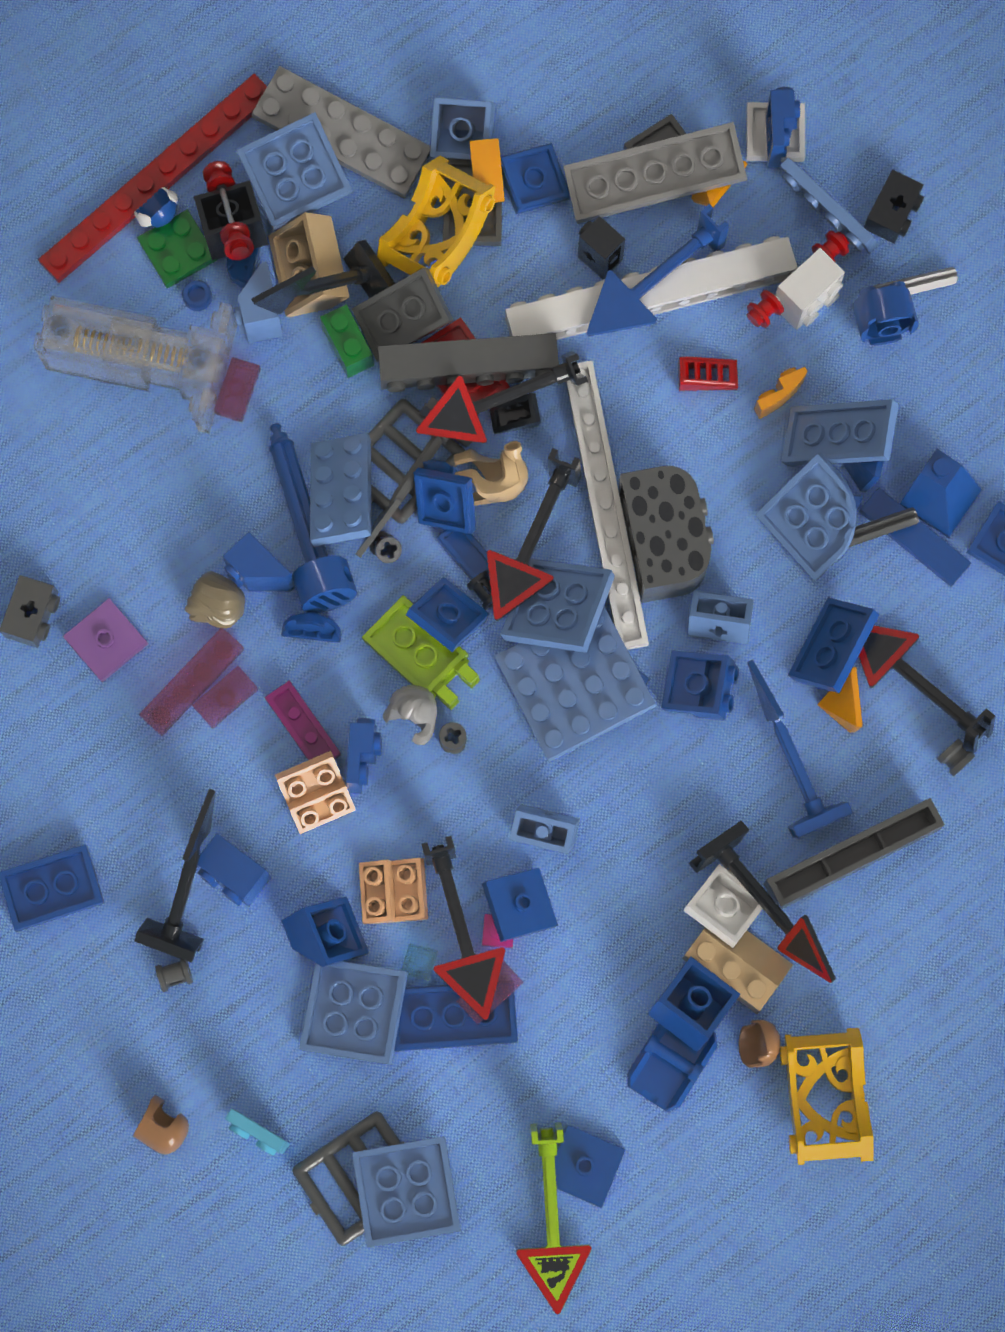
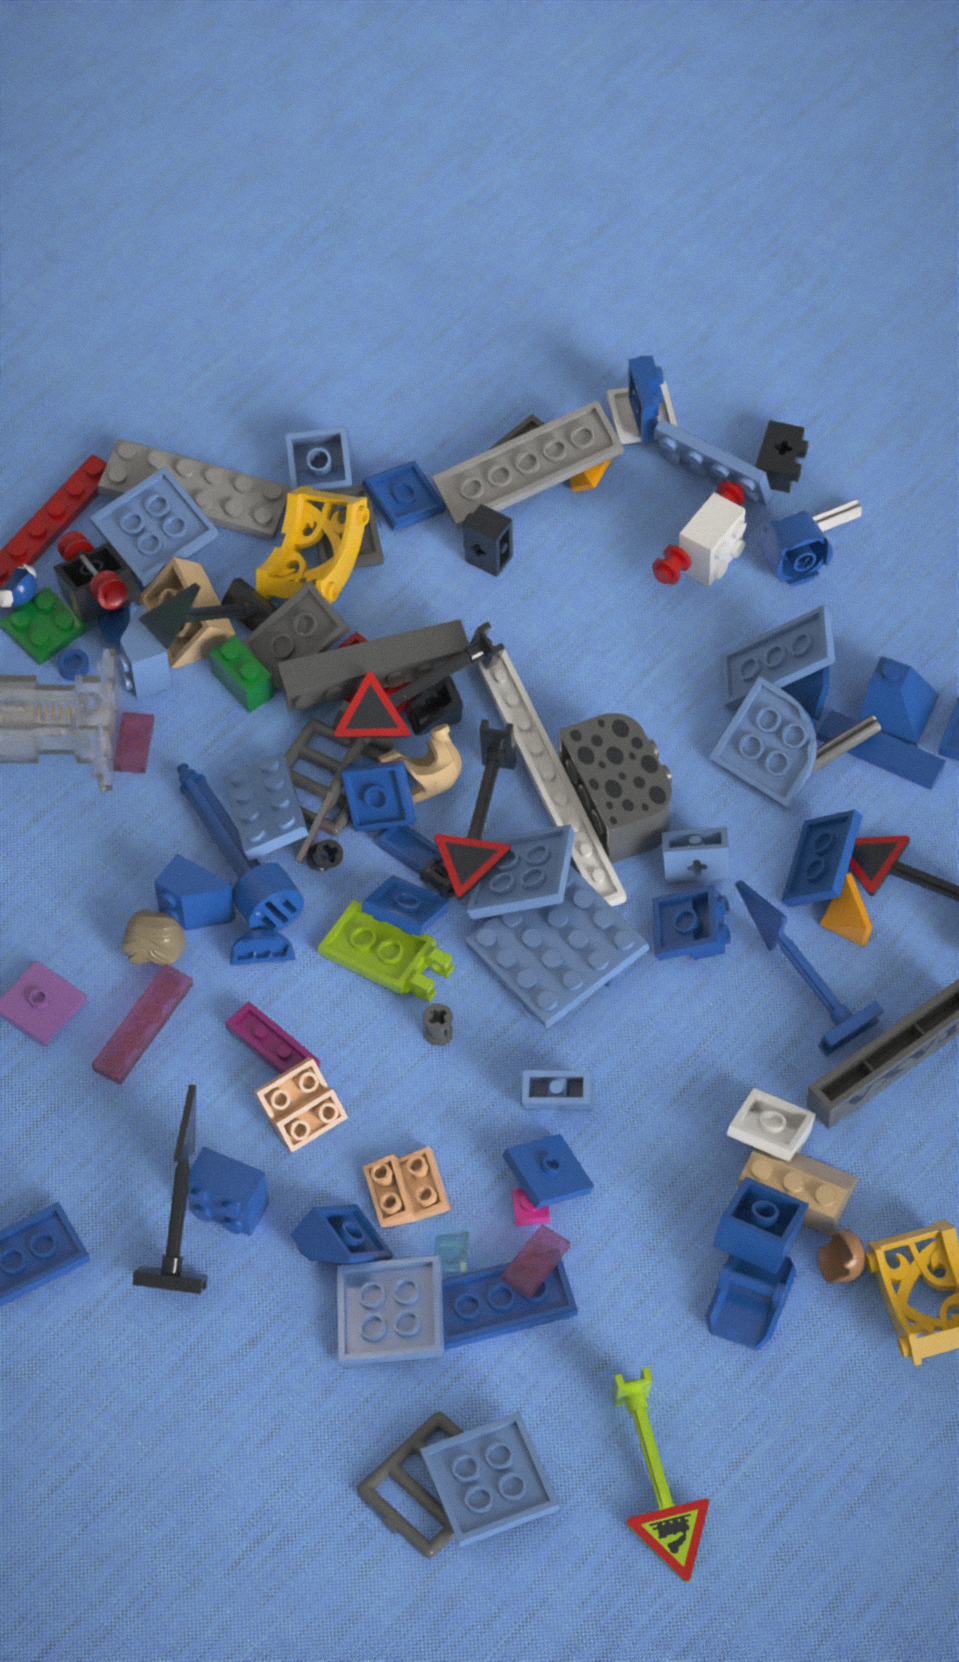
camera: 10 degrees left, 20 degrees down
(160, 1130) = (198, 1476): medium nougat helmet -> none
(173, 974) = (182, 1314): dark grey bush -> none
(225, 697) = (182, 1032): clear pink plate -> none
(266, 1139) = (310, 1448): medium azure plate -> none
(362, 750) = (344, 1049): blue plate -> none
(416, 705) = (389, 998): light grey hair -> none
(473, 975) = (514, 1243): piece -> none
(487, 164) = (352, 481): light orange slope -> none
(586, 1166) = (683, 1421): blue plate -> none
(621, 307) = (524, 588): blue piece -> none
(687, 285) = (555, 572): white brick -> none
(697, 384) = (617, 650): red slope -> none
(786, 387) = (712, 635): light orange slope -> none
(800, 940) = (863, 1141): black piece -> none

